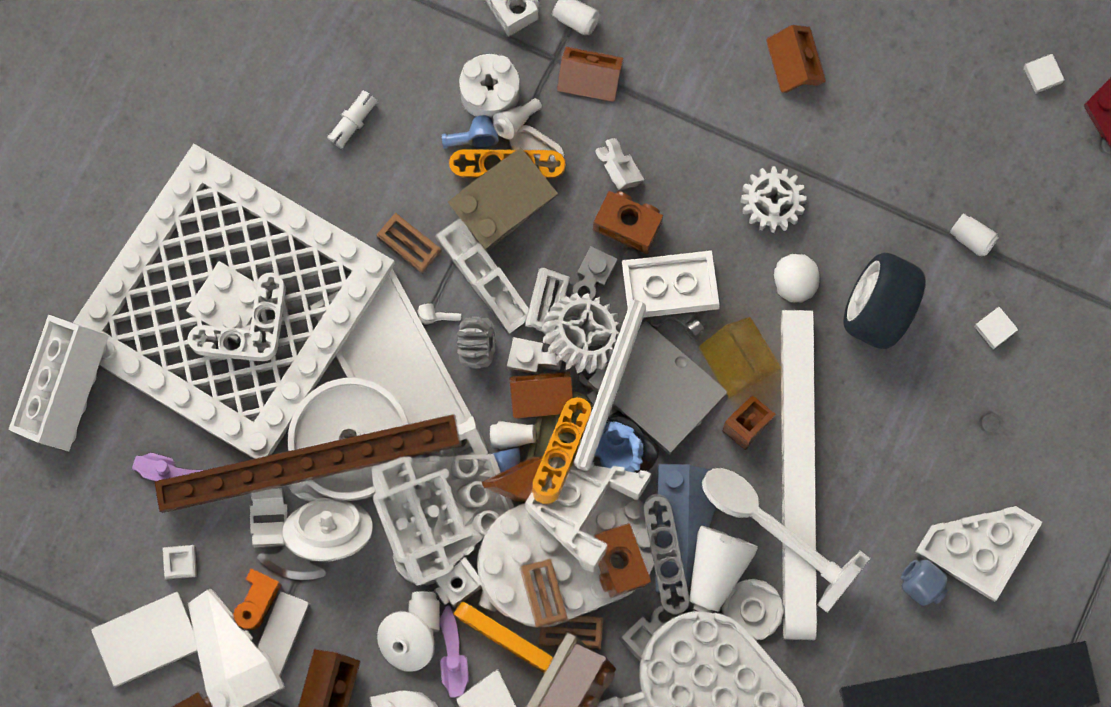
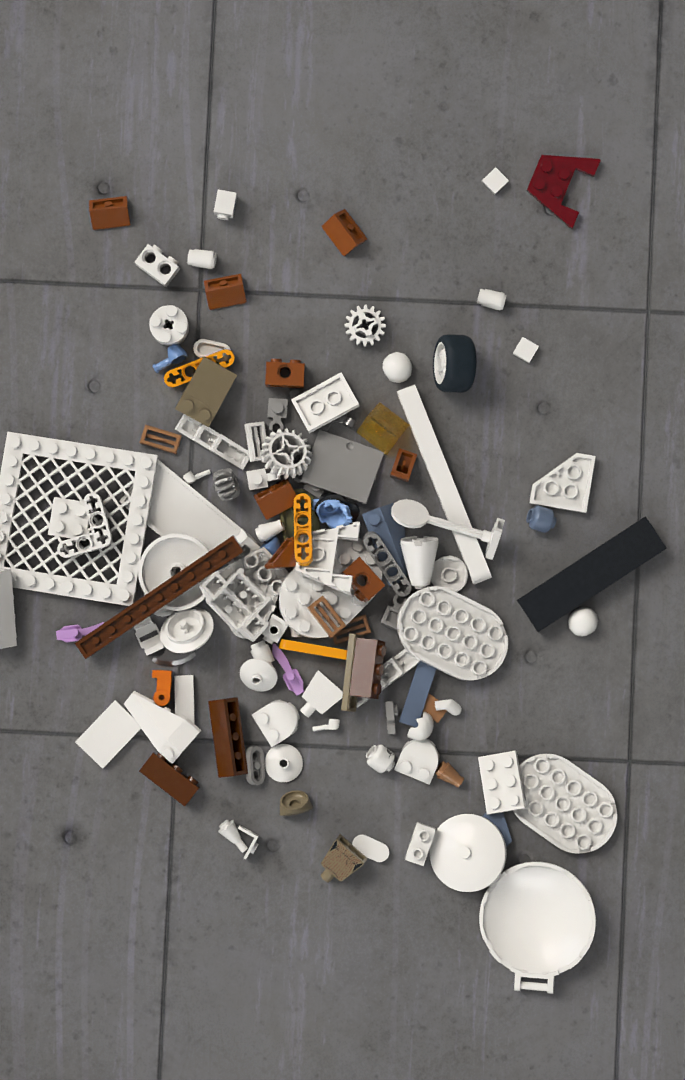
camera: 20 degrees left, 10 degrees up
(179, 562) = (108, 682): white tile -> none
(352, 119) = (95, 378): white pin -> none
(511, 120) = (190, 341): white cone -> none
(610, 385) = (315, 479): white axle -> none
(620, 167) = (267, 343): white plate -> none

